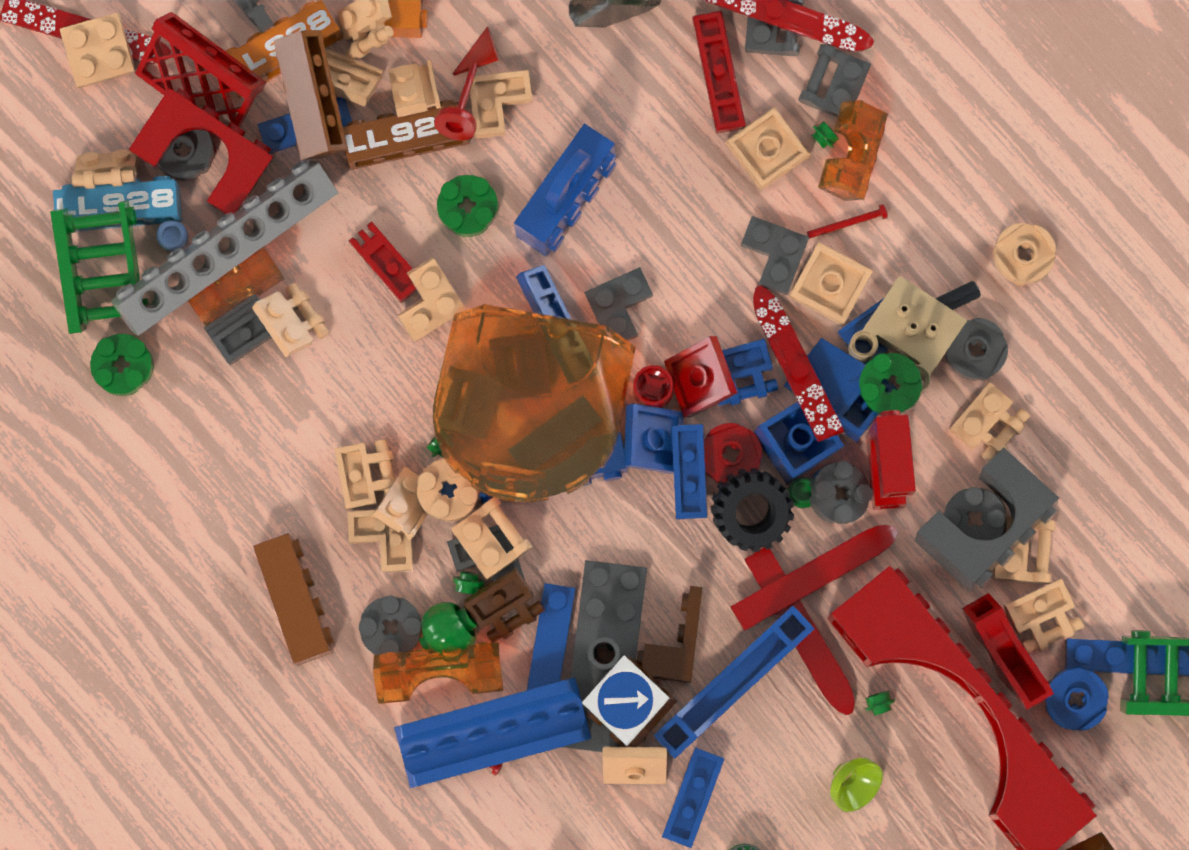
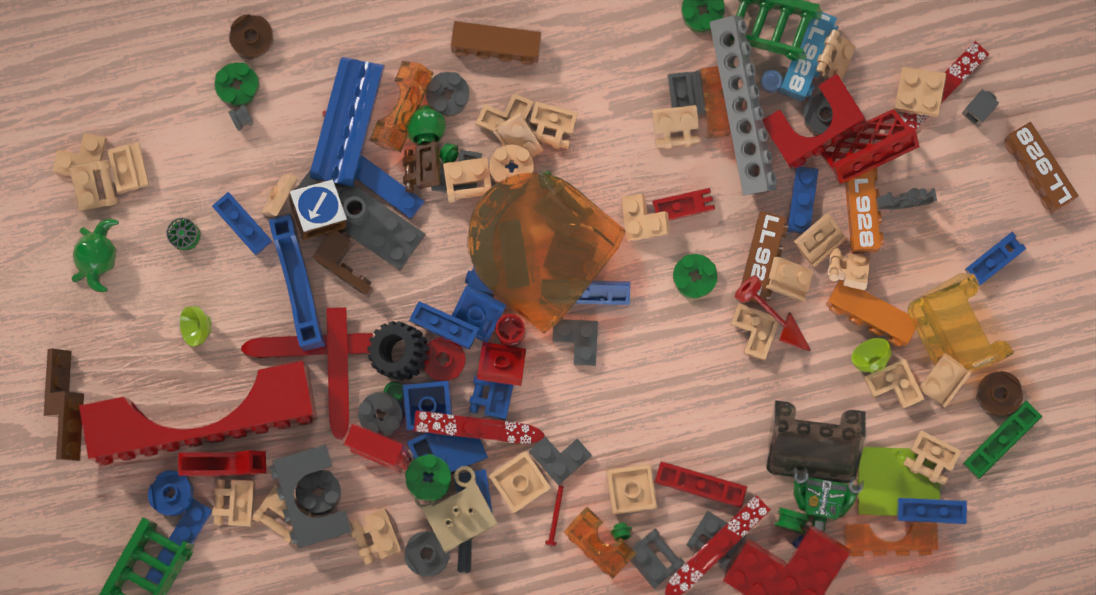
camera: 115 degrees right, 0 degrees up
(310, 94) = (816, 206): brick -> none
(565, 190) = (669, 340): blue brick -> none
(879, 702) = (237, 369): green plate -> none

